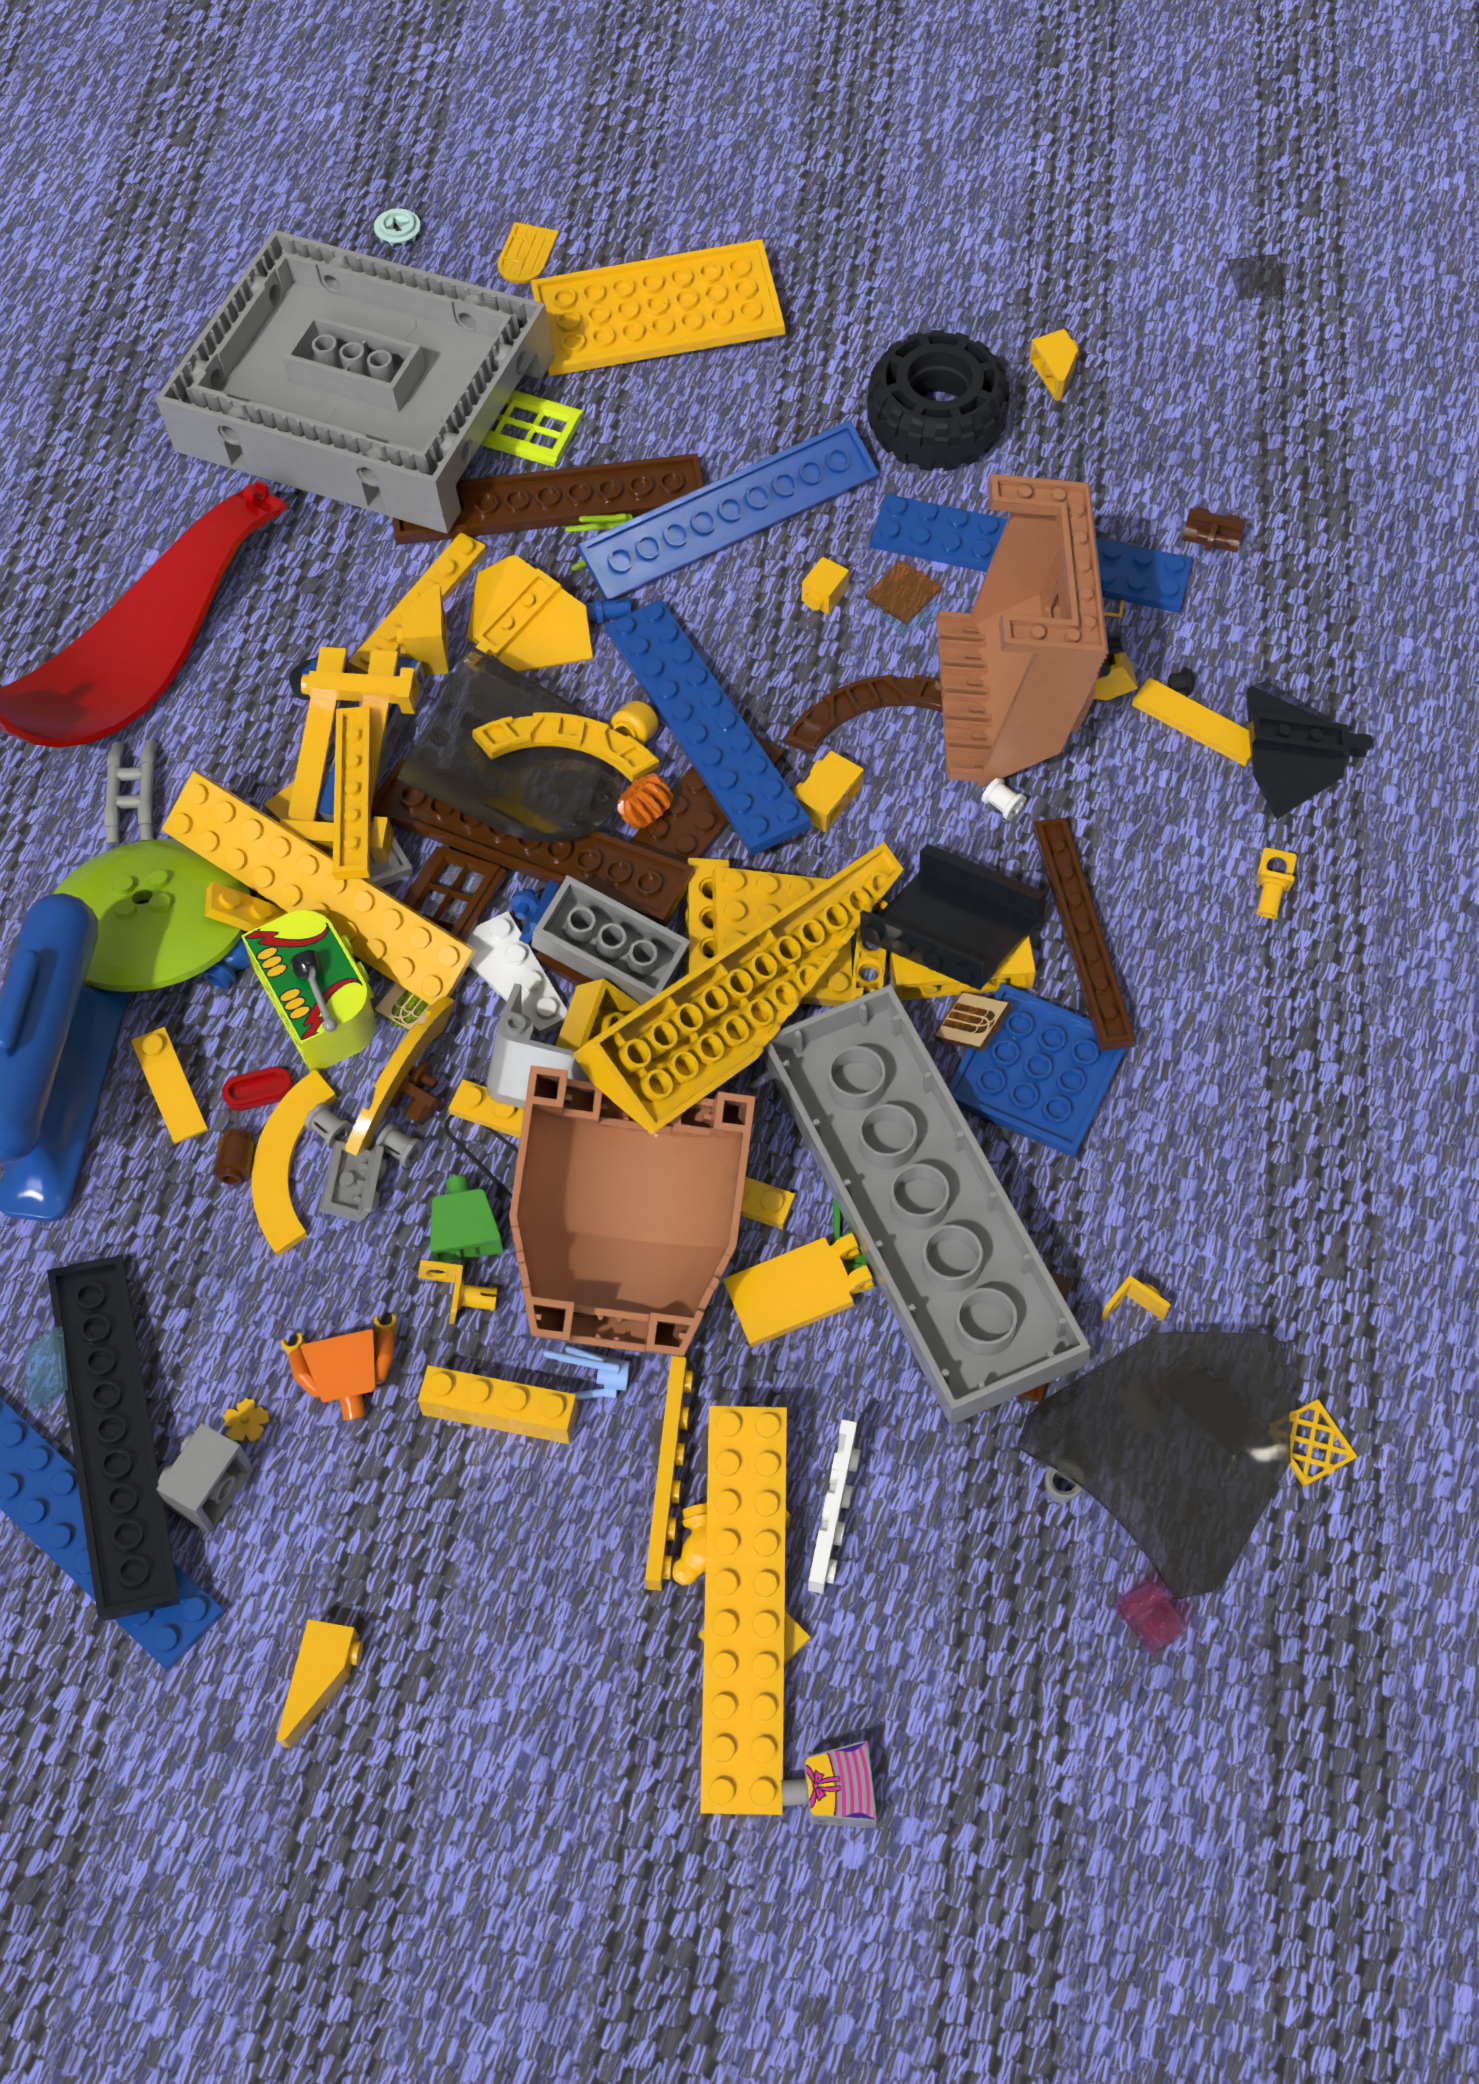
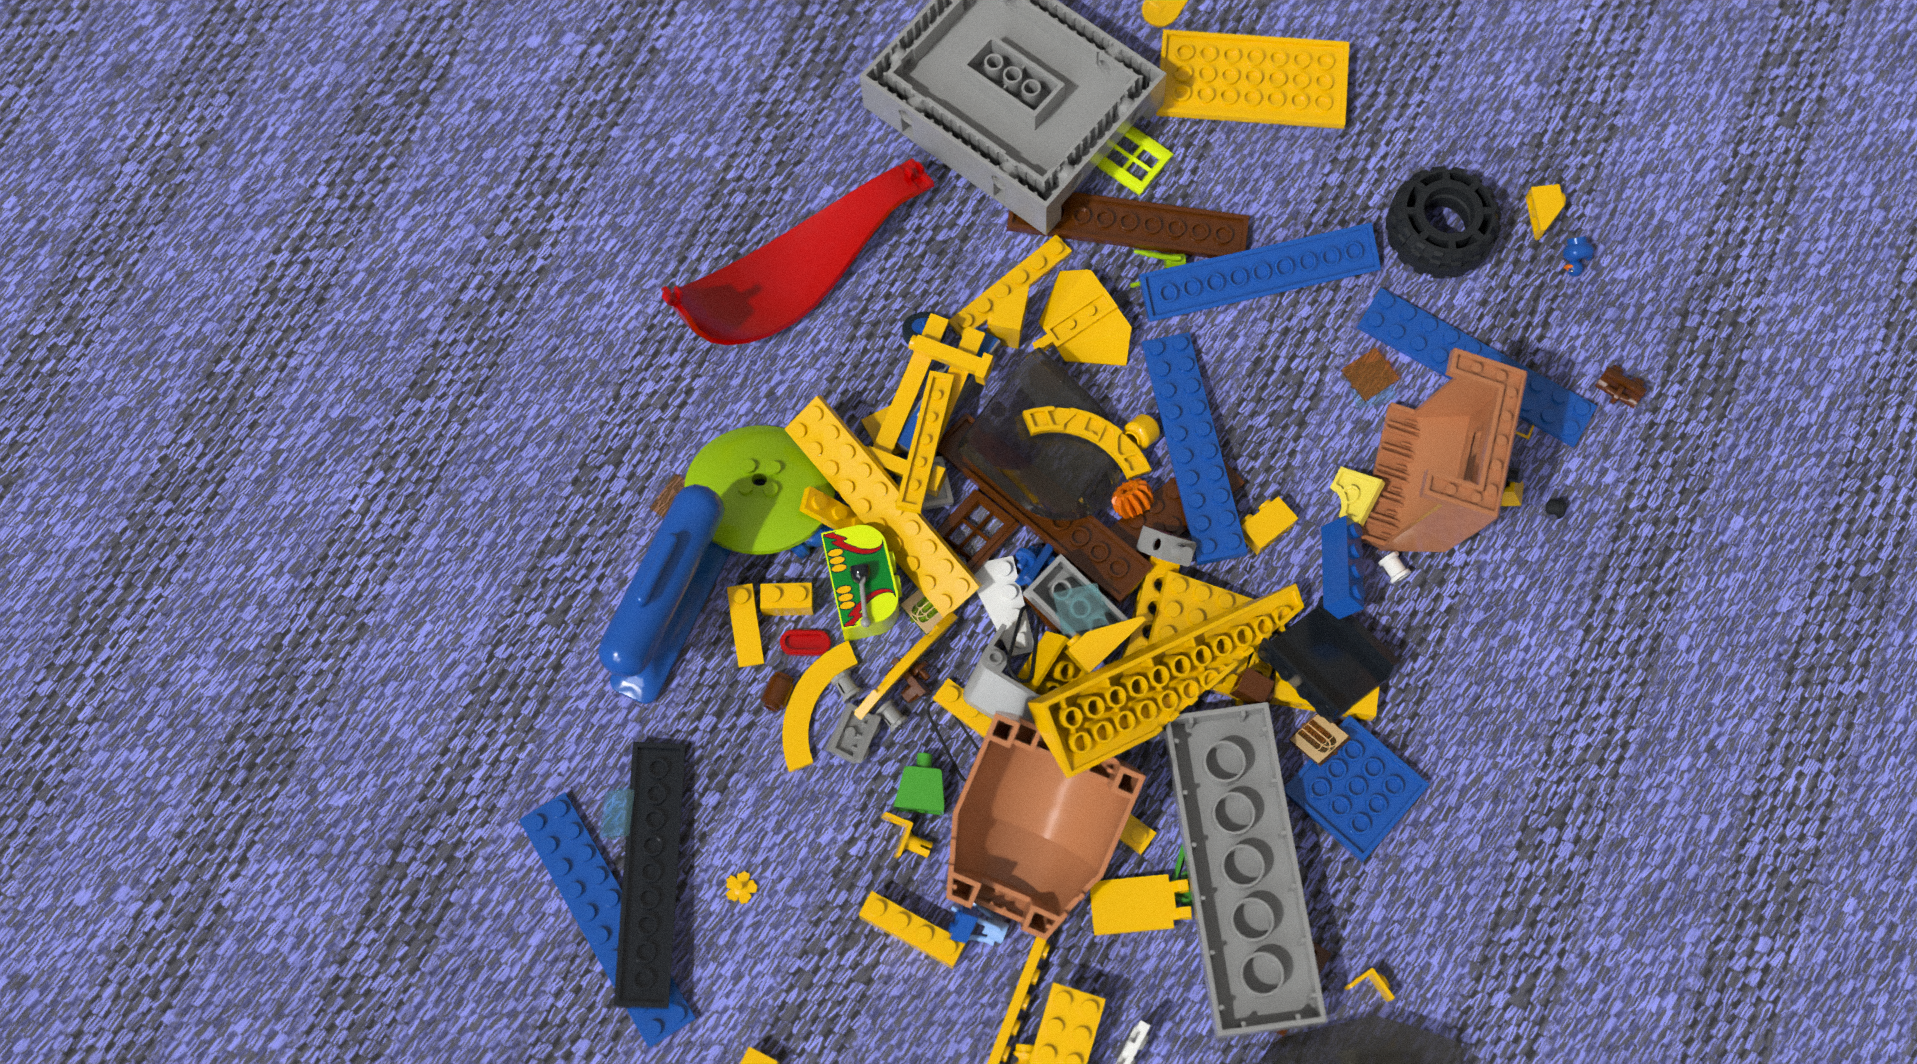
camera: 15 degrees right, 10 degrees up
(143, 802) = (777, 394): light grey piece -> none
(204, 1477) = (703, 926): light grey brick -> none
(217, 1038) = (786, 599): none -> yellow brick
(344, 1365) = (815, 870): orange torso -> none
(565, 1368) = (963, 923): none -> blue piece
(566, 1002) = (1034, 646): none -> black piece
(607, 610) = (1144, 329): blue pin -> none
(611, 936) = (1079, 608): none -> clear light blue piece
(649, 967) = (1097, 644): none -> yellow slope
(712, 839) = (1172, 547): none -> light grey torso
(825, 585) = (1313, 354): yellow brick -> none
(859, 698) = (1309, 454): reddish brown tile -> none
(865, 975) = (1252, 687): none -> reddish brown brick
(929, 725) = (1357, 493): none -> light yellow tile
(937, 806) = (1342, 567): none -> blue brick
(1083, 935) = (1420, 692): reddish brown tile -> none
(1108, 397) = (1575, 250): none -> blue animal
(1194, 720) = (1558, 543): yellow tile -> none
(1256, 277) = (1725, 171): clear smoke piece -> none
(1274, 882) = (1572, 692): yellow bracket -> none
(1295, 747) = (1624, 585): black panel -> none

